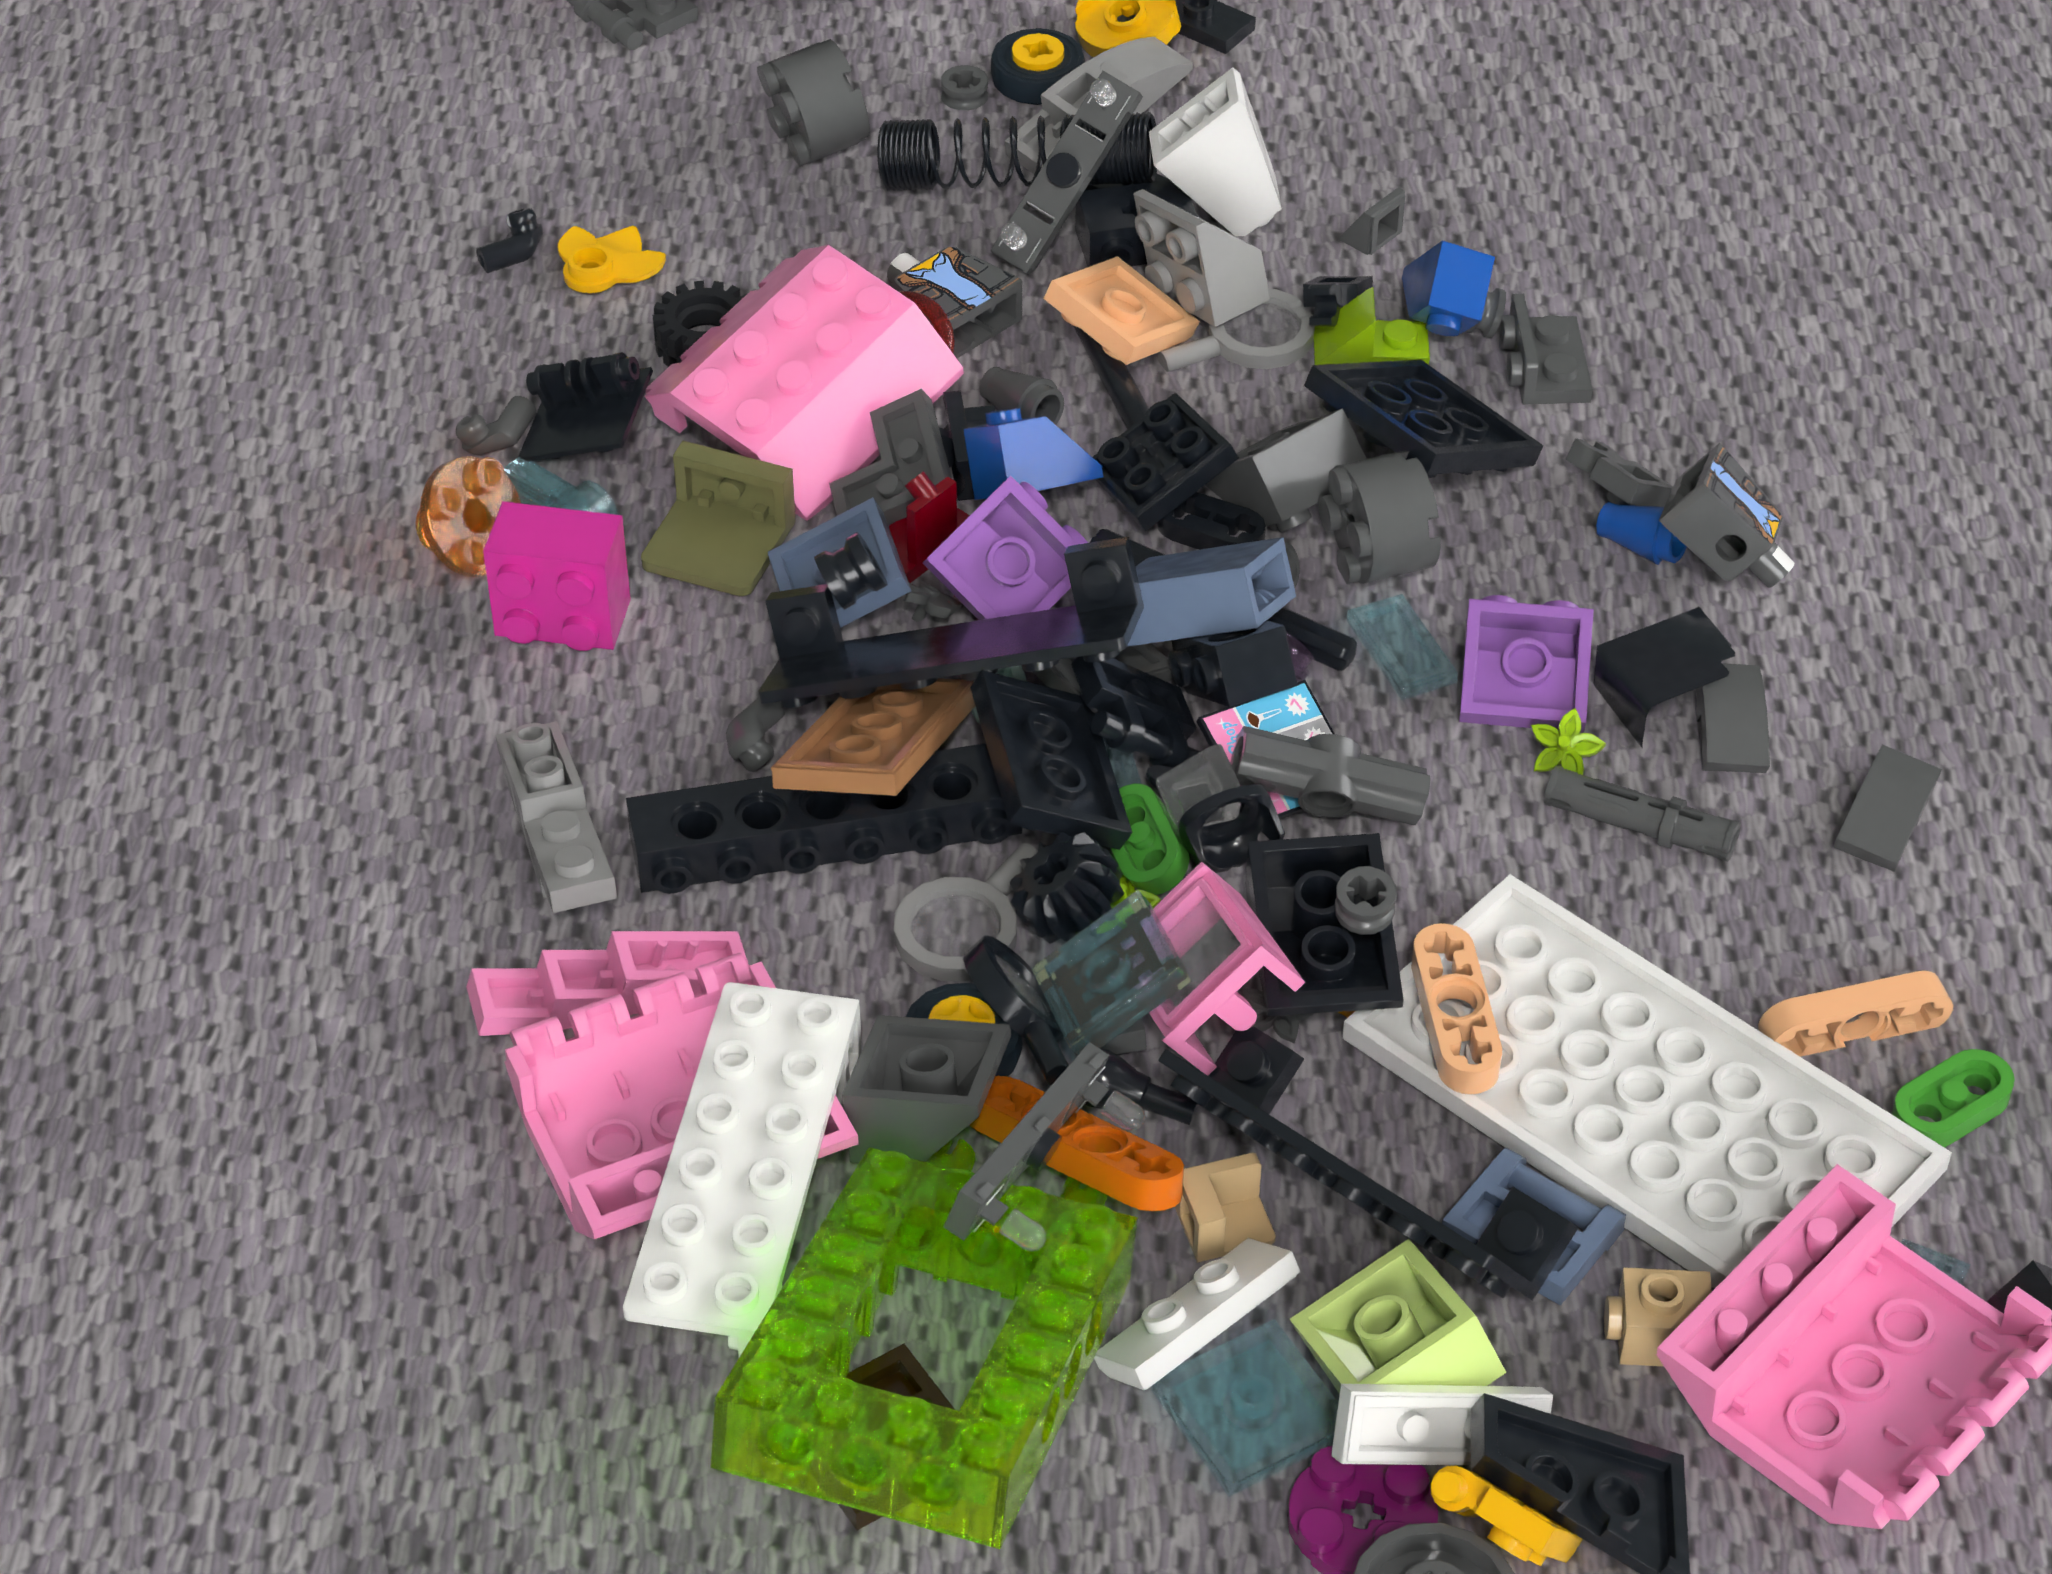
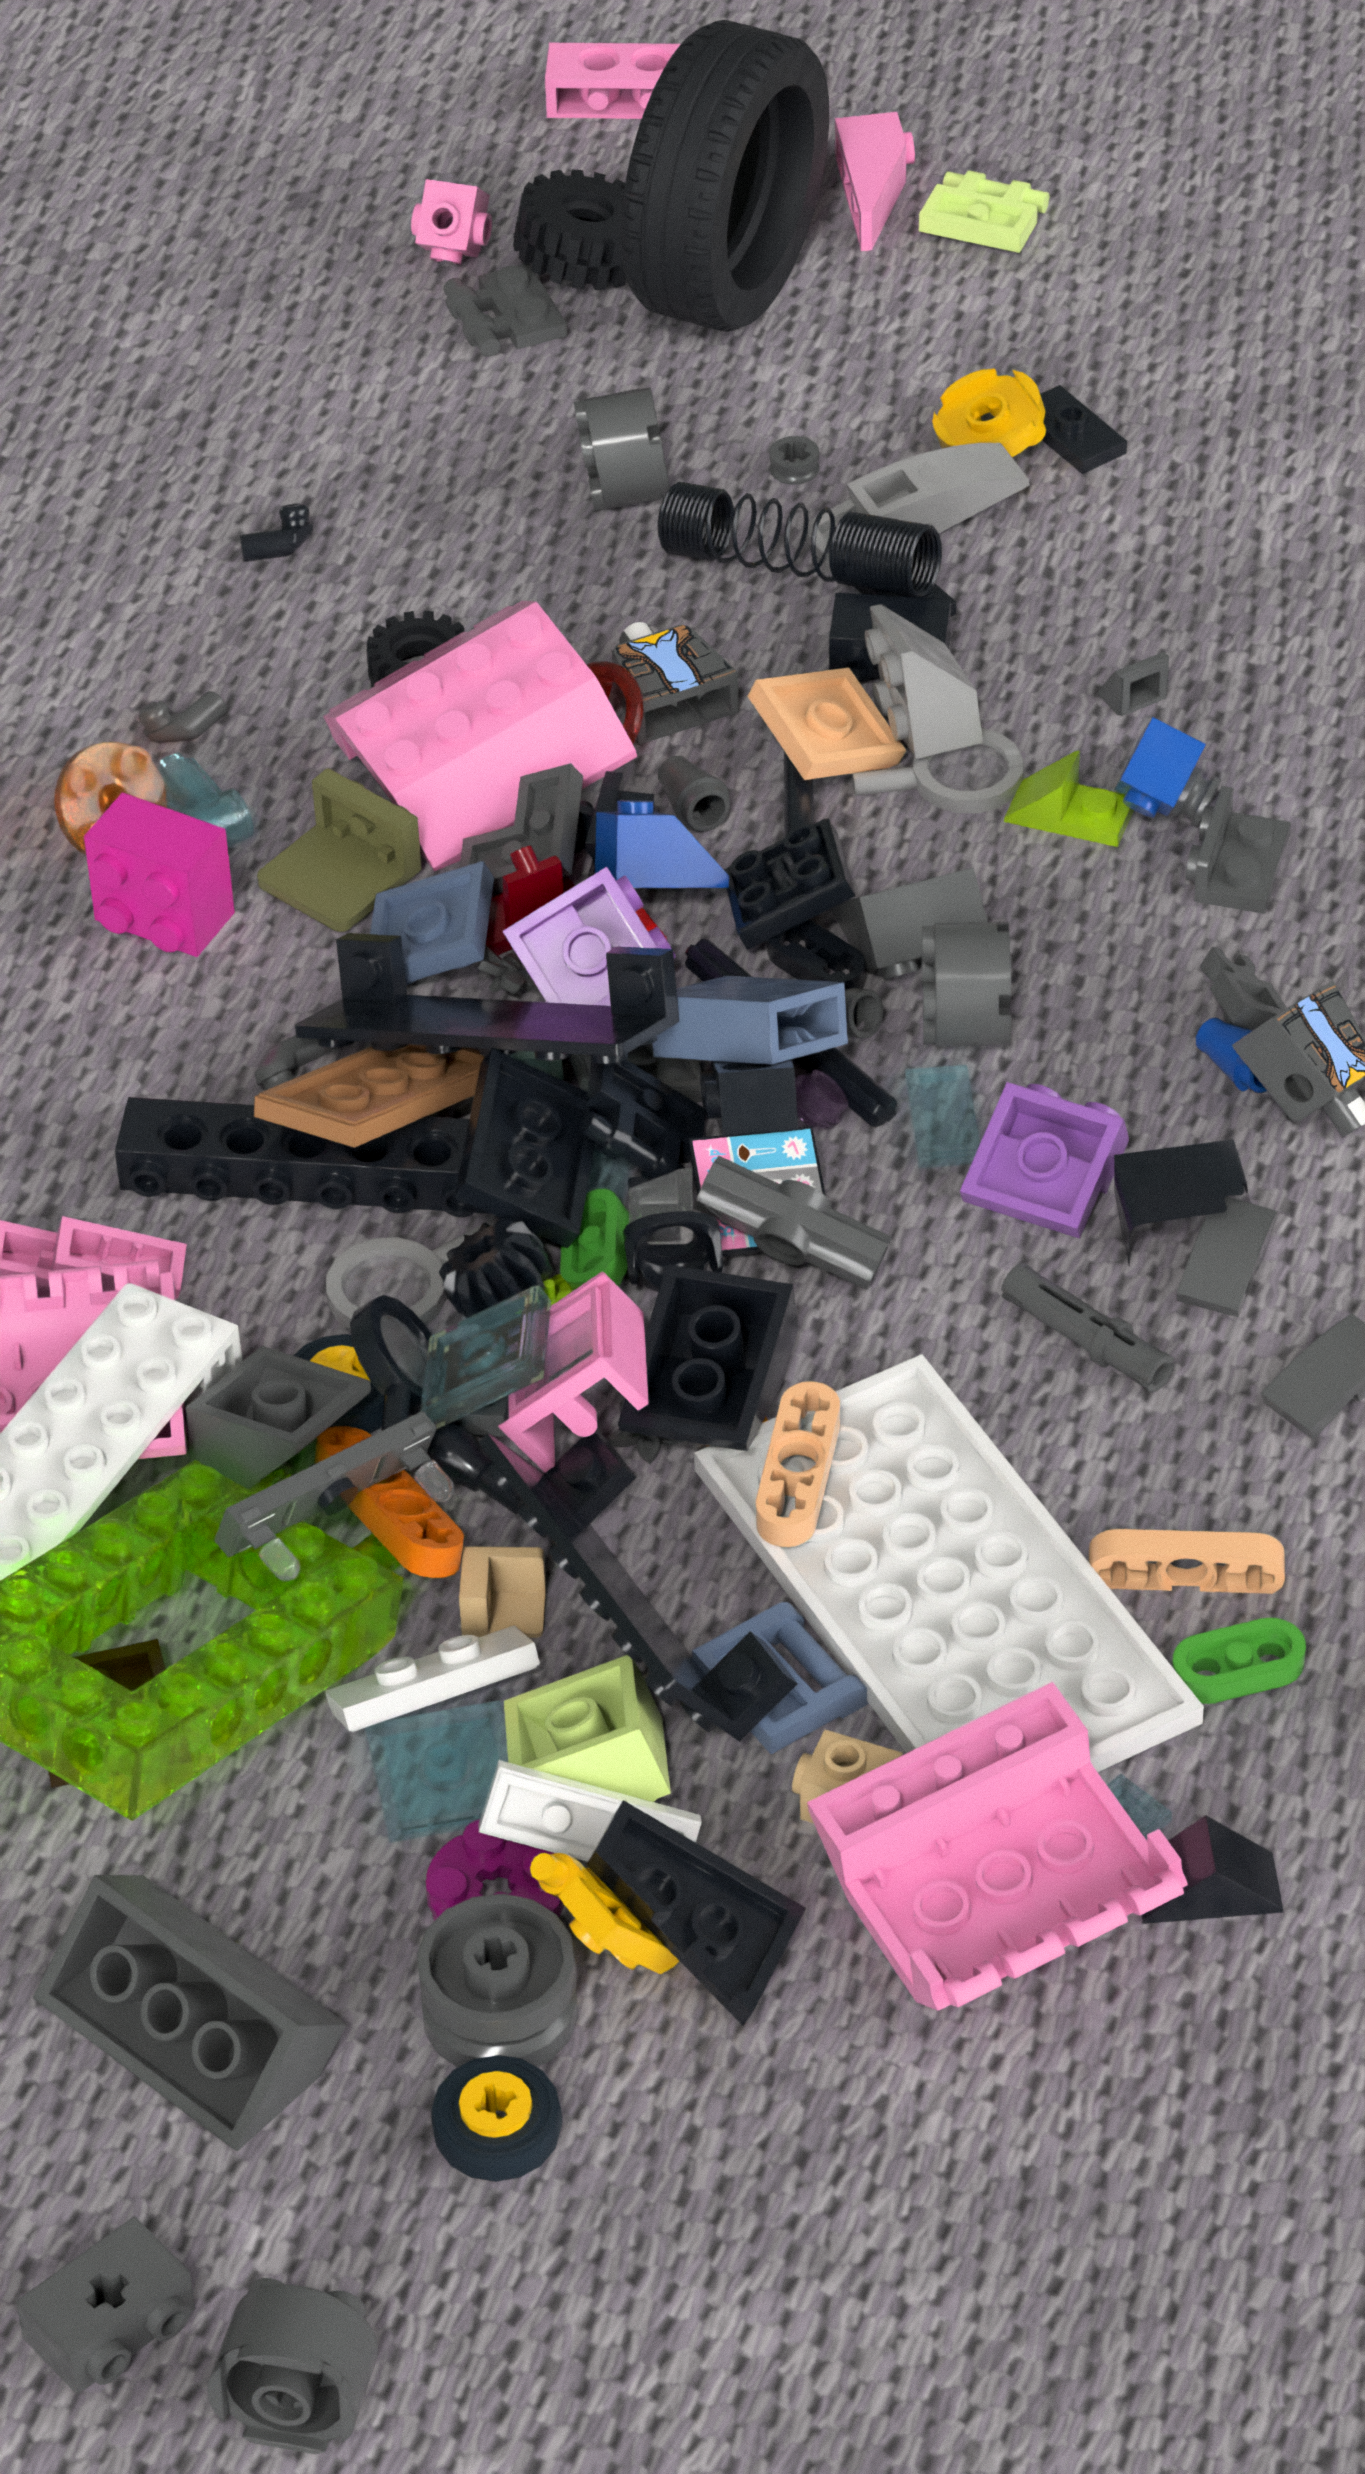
camera: 20 degrees right, 0 degrees up
(555, 817) = (65, 1101): light grey slope -> none
(584, 405) = (268, 714): black hinge -> none
(601, 262) = (354, 571): yellow plate -> none
(850, 570) = (423, 927): black wheel -> none
(1033, 61) = (872, 442): black wheel -> none
(1066, 173) = (826, 571): dark grey piece -> none
(1219, 156) = (987, 586): white slope -> none
(1330, 294) = (1047, 746): black plate -> none
(1367, 883) = (760, 1332): dark grey bush -> none
(1423, 413) = (1066, 893): black plate -> none
(1566, 745) = (1048, 1245): lime plant -> none

